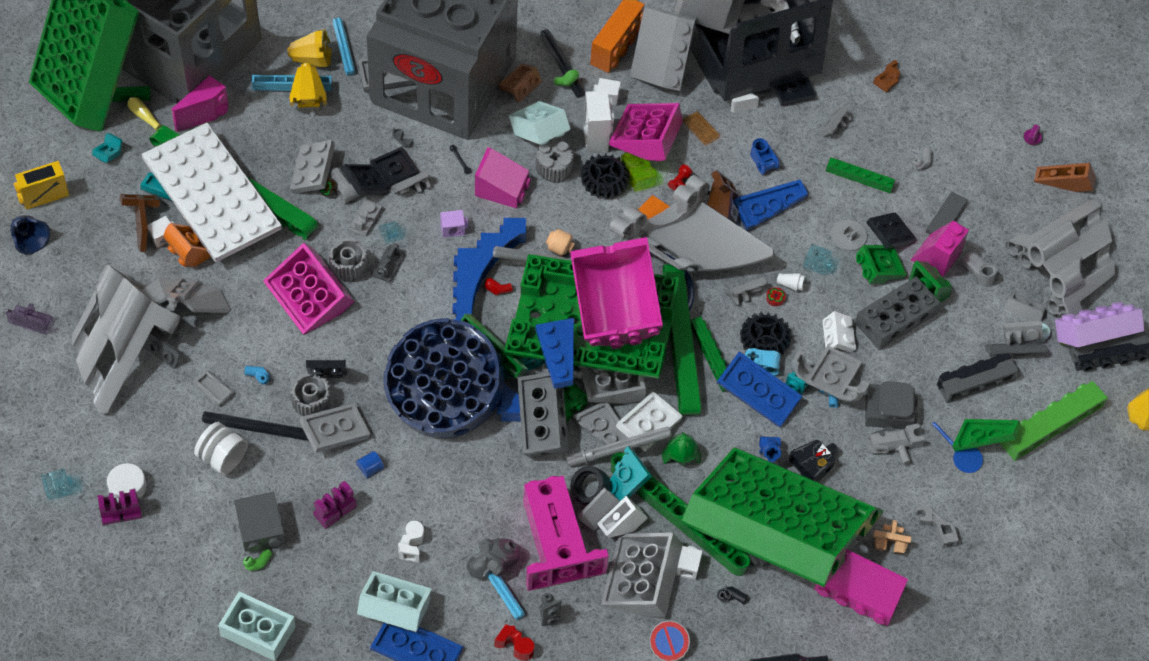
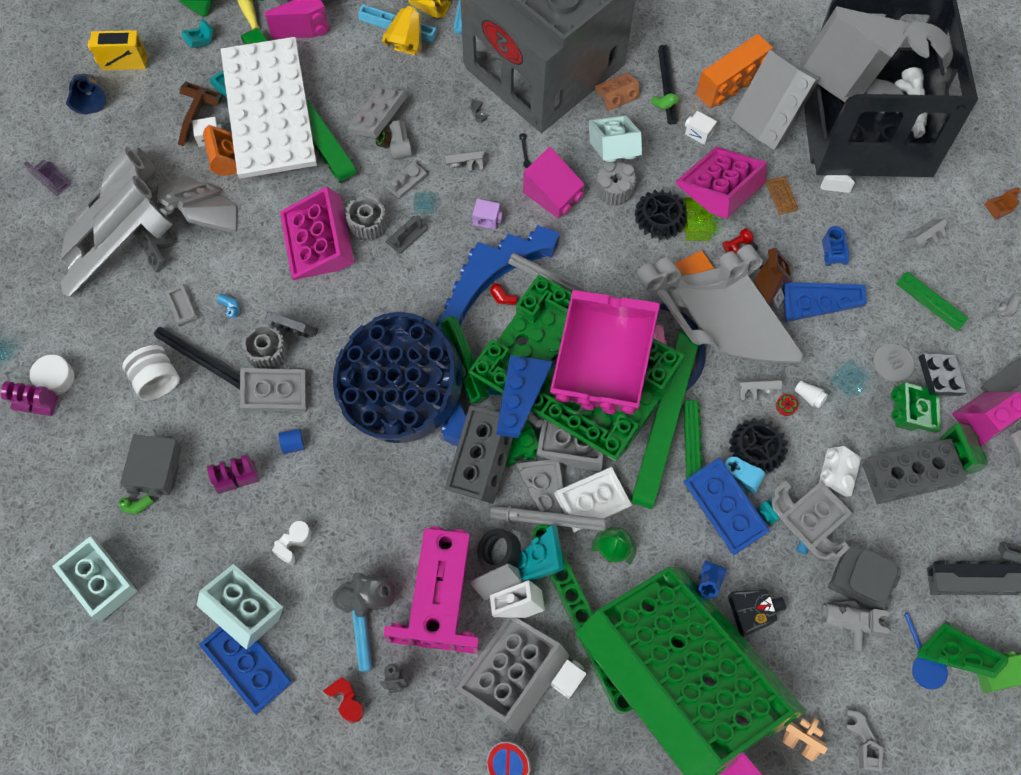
camera: 25 degrees right, 10 degrees up
(364, 179) = (420, 141): black tile -> none
(394, 167) = (456, 137): black tile -> none
(560, 242) = (584, 270): light nougat head -> none
(598, 121) = (674, 154): white brick -> none
(731, 593) = (599, 731): black arm -> none
(795, 92) = (896, 188): black plate -> none

